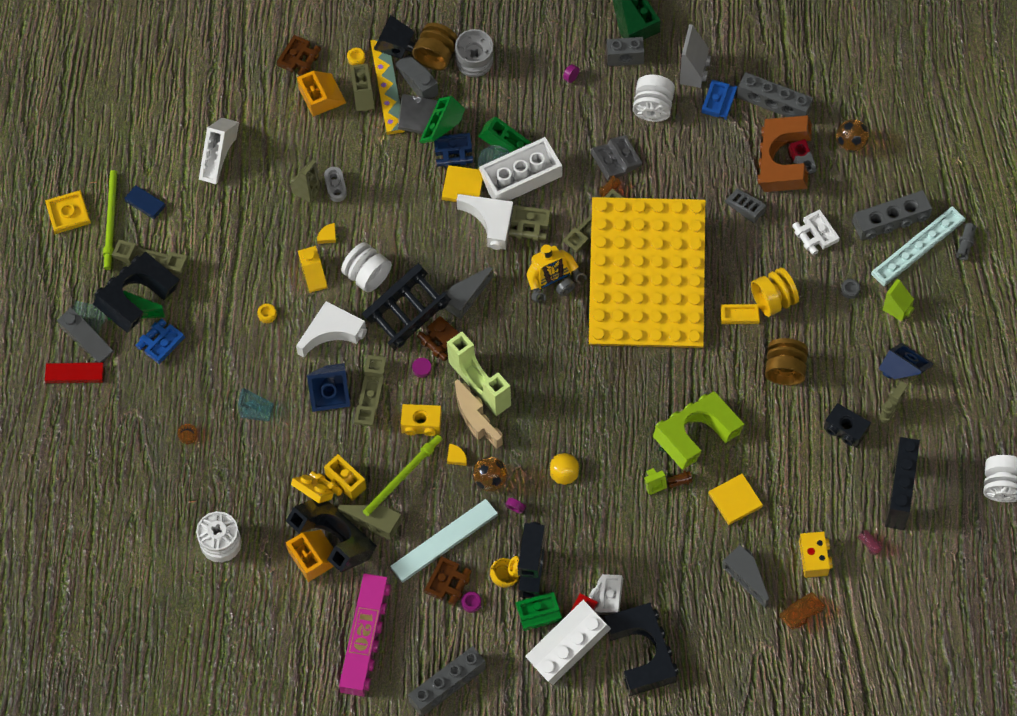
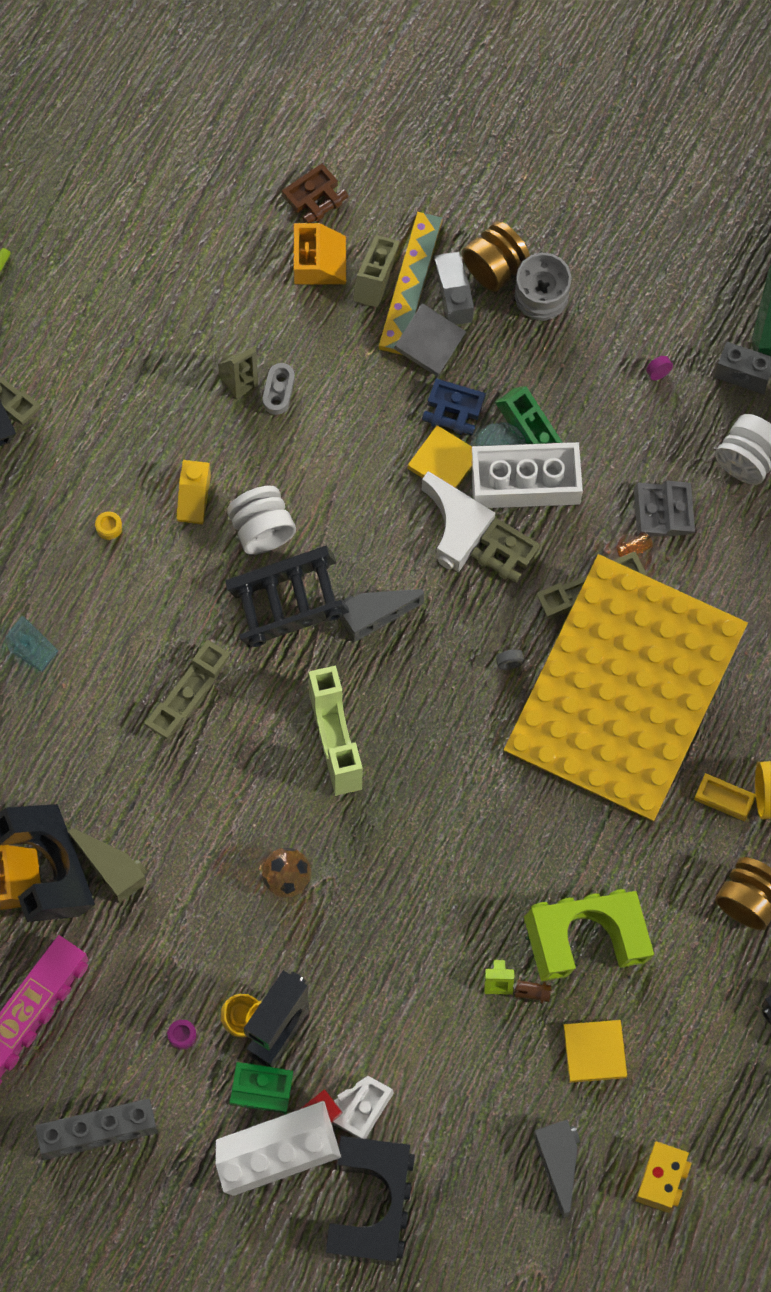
camera: 20 degrees right, 5 degrees up
(144, 202) = (25, 308): dark blue tile -> none
(217, 143) = (151, 268): white arch -> none
(316, 487) = (50, 793): yellow plate -> none
(327, 234) = (236, 452): yellow tile -> none
(328, 388) = (137, 661): dark blue slope -> none
(329, 325) = (178, 577): white arch -> none
(345, 476) = (98, 793): yellow brick -> none
(356, 56) = (389, 225): yellow tile -> none
(395, 38) = (449, 223): black torso -> none
(412, 413) = (227, 744): yellow brick -> none
(421, 367) = (271, 686): magenta tile -> none
(426, 450) = (222, 802): lime bar -> none
(440, 331) = (321, 650): reddish brown plate -> none
(442, 578) = (158, 986): reddish brown plate -> none
(444, 540) = (186, 935): light aqua tile -> none
(445, 116) = (461, 359): green slope -> none
(456, 456) = (257, 826): yellow tile -> none
(472, 412) = (307, 773): tan slope -> none
(515, 505) = (300, 929): magenta tile -> none
(549, 267) = (501, 623): yellow torso -> none
(564, 468) = (389, 907): yellow hair -> none
(801, 610) = (607, 1246): clear orange slope -> none
(870, 542) = (747, 1195): clear pink pin -> none

